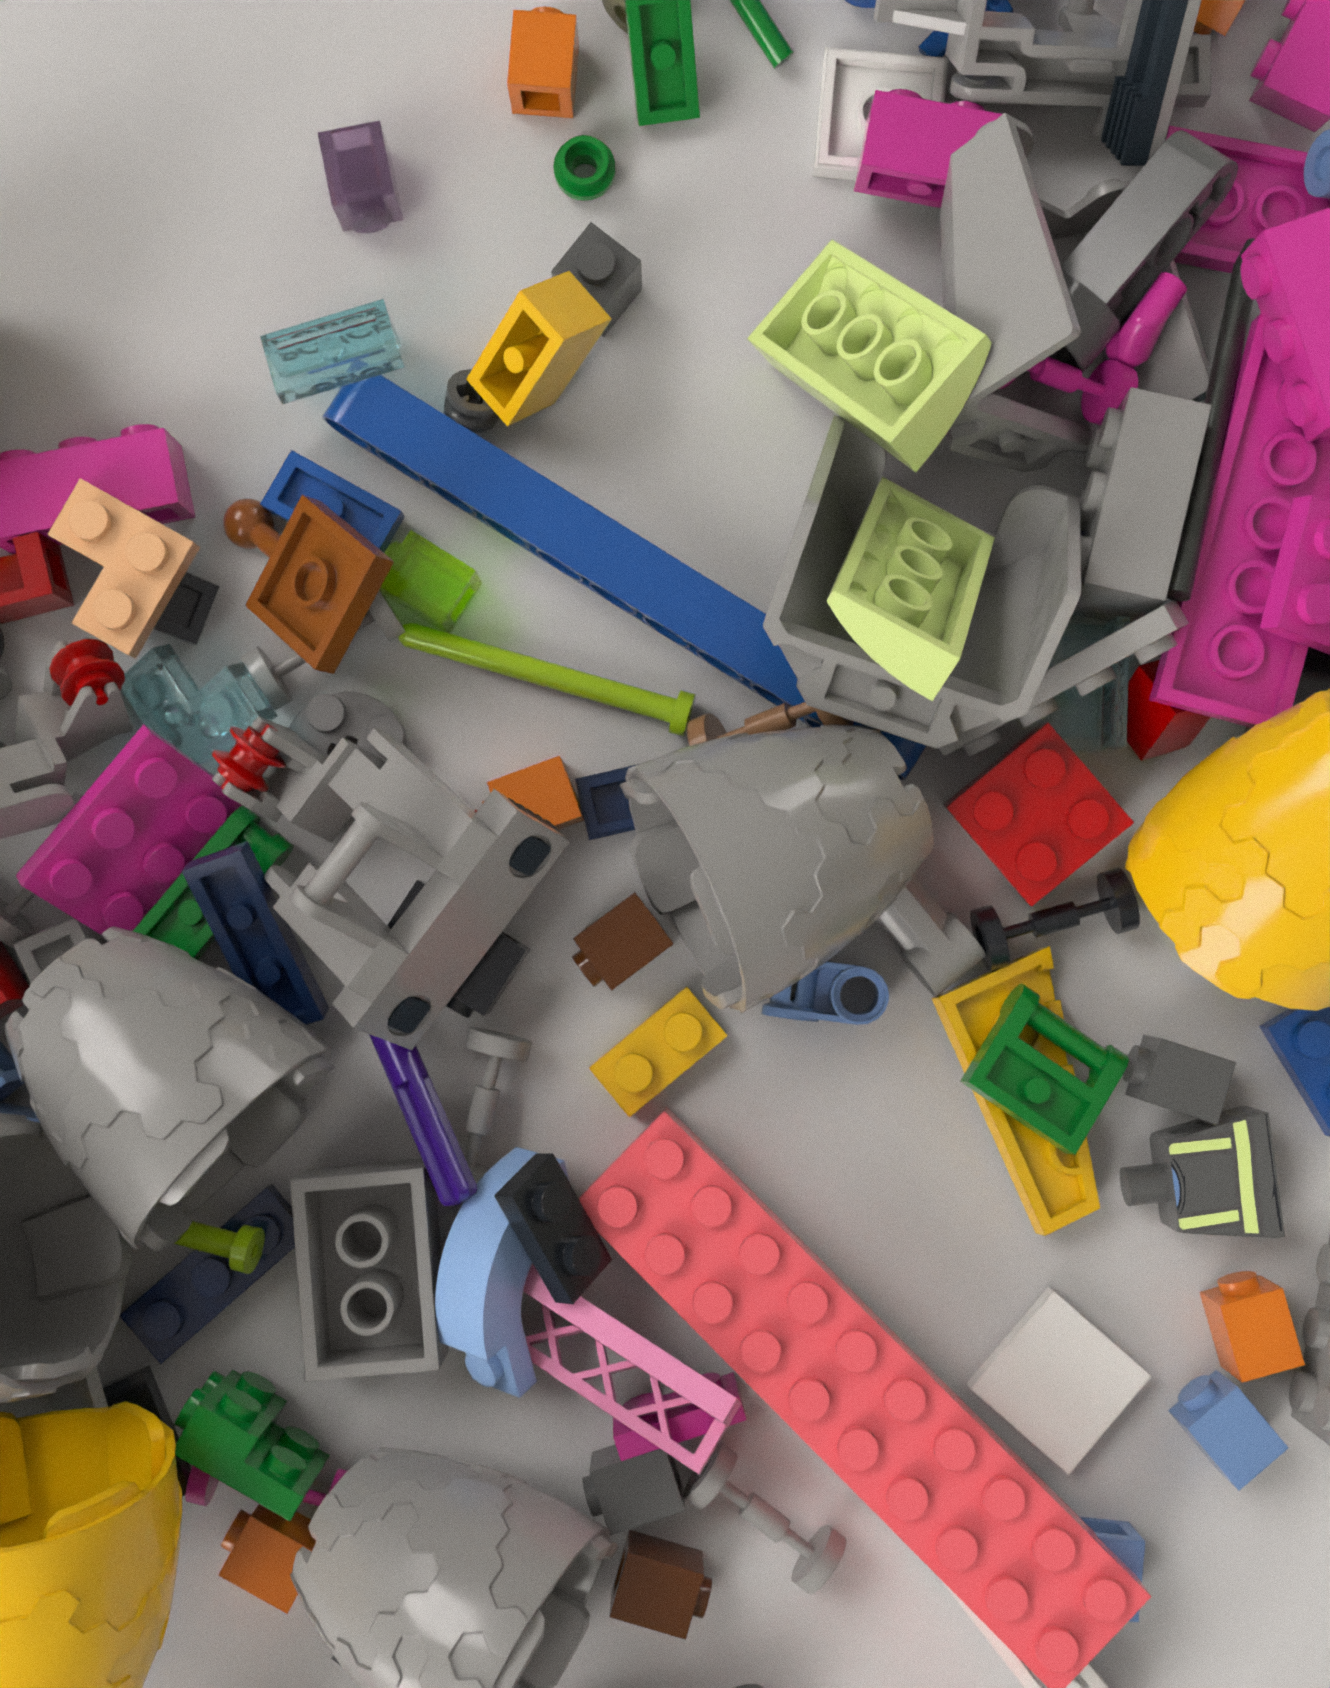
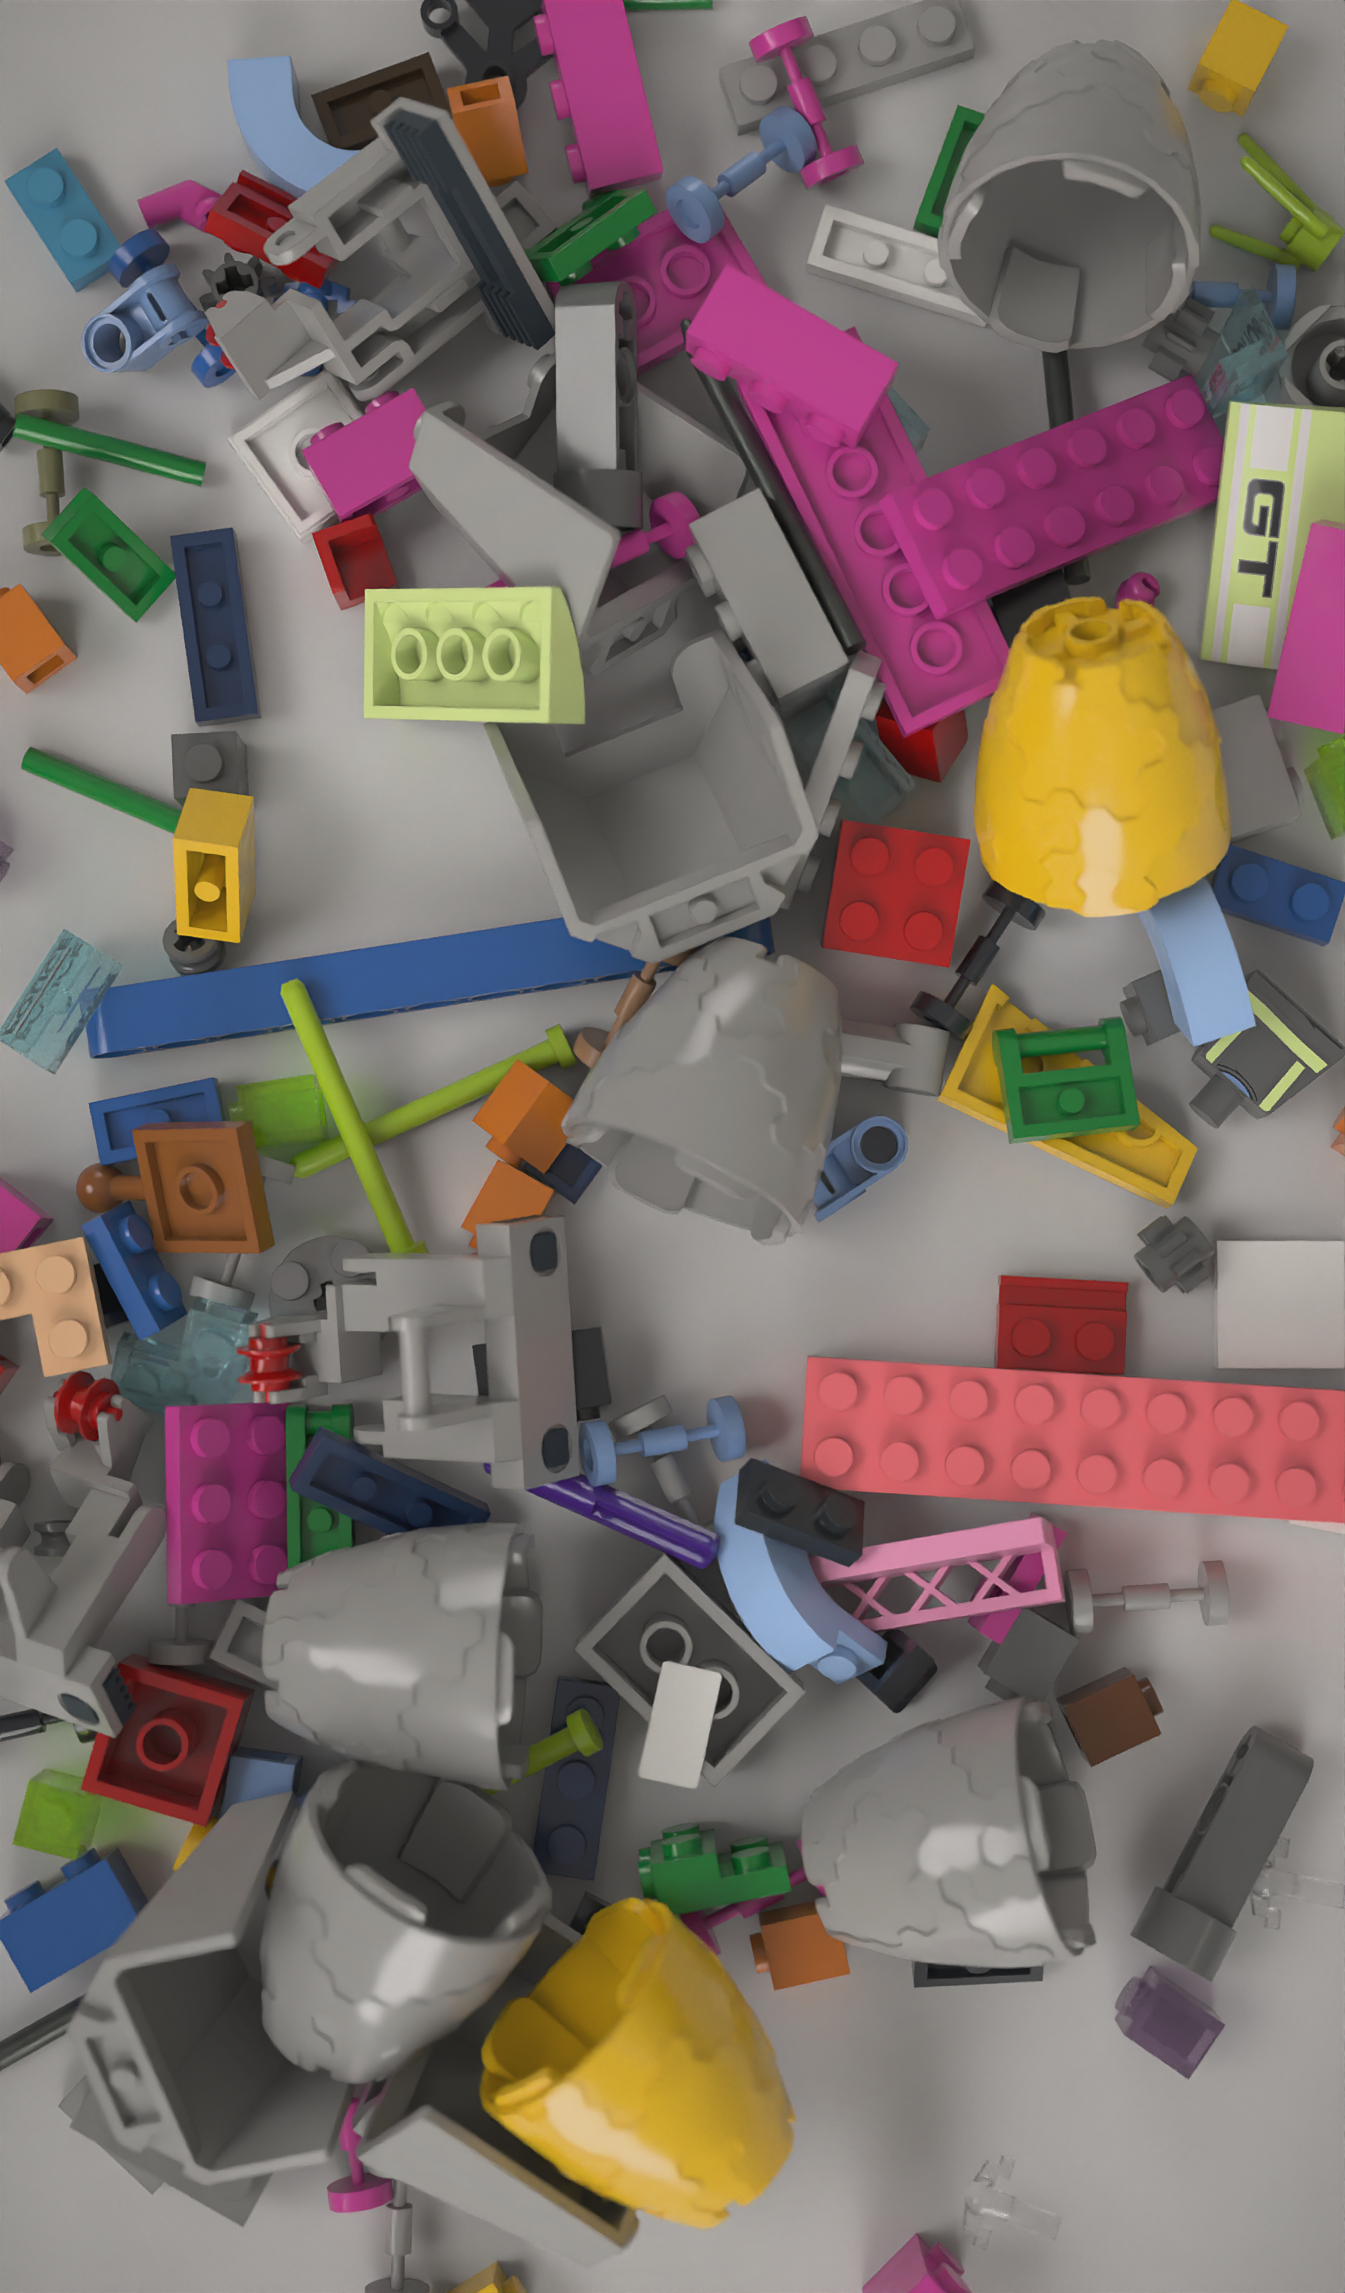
camera: 35 degrees left, 0 degrees up
(215, 602) = (135, 1270): none -> blue plate
(320, 1311) = (680, 1725): none -> white sticker
(473, 629) = (348, 1119): none -> lime bar
(501, 219) = (101, 789): none -> green bar
(525, 1417) = (902, 1674): none -> black bracket
(554, 1107) = (724, 1428): none -> medium blue wheel
(579, 151) = (112, 675): green plate -> none
(606, 742) = (525, 1118): none -> orange brick
(620, 943) = (666, 1261): reddish brown brick -> none
(658, 1051) = (765, 1319): yellow plate -> none
(695, 178) = (215, 627): none -> dark blue plate
(842, 210) = (354, 559): none -> red panel
(878, 1250) = (1061, 1325): none -> red plate
(911, 586) = (652, 807): yellowish green slope -> none
(1012, 1274) = (1174, 1254): none -> dark grey gear
(1140, 333) = (659, 457): dark pink arm -> none
(1232, 1072) = (1199, 964): none -> light blue arch
(1251, 117) = (605, 222): none -> green plate

